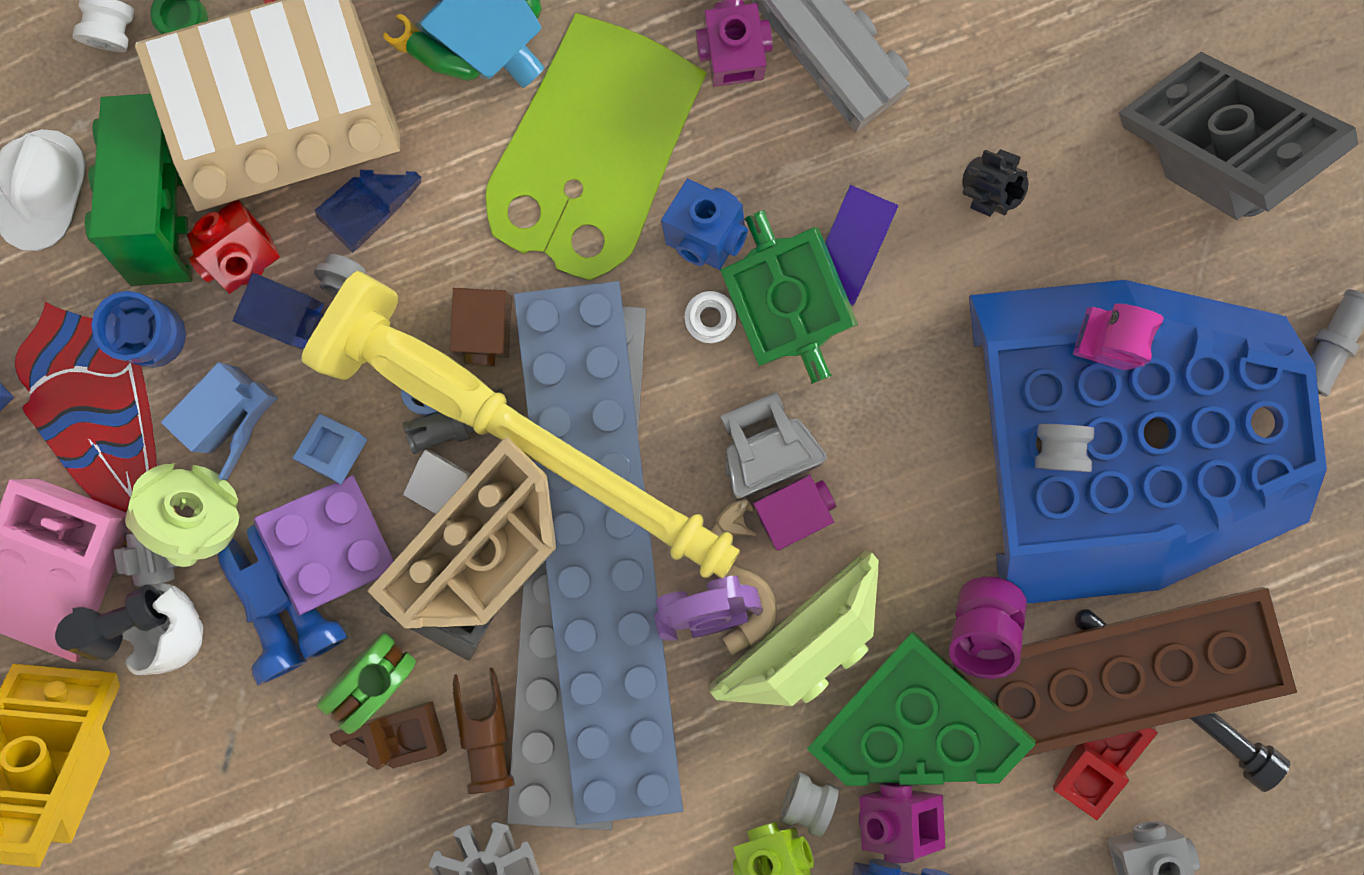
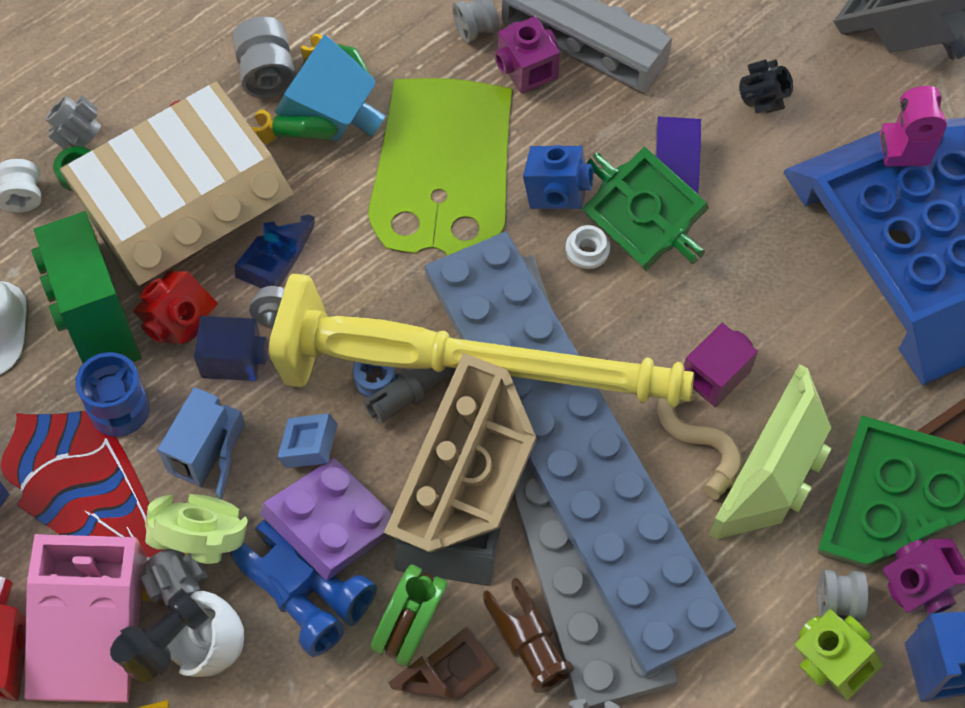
camera: 20 degrees left, 25 degrees down
(434, 481) = (405, 438): white slope -> none
(480, 325) = (403, 298): reddish brown brick -> none
(707, 612) = (684, 450): medium lavender plate -> none
(770, 455) = (681, 327): light grey piece -> none
(988, 628) = (922, 391): magenta wheel -> none
(1064, 447) = (913, 222): light grey wheel -> none

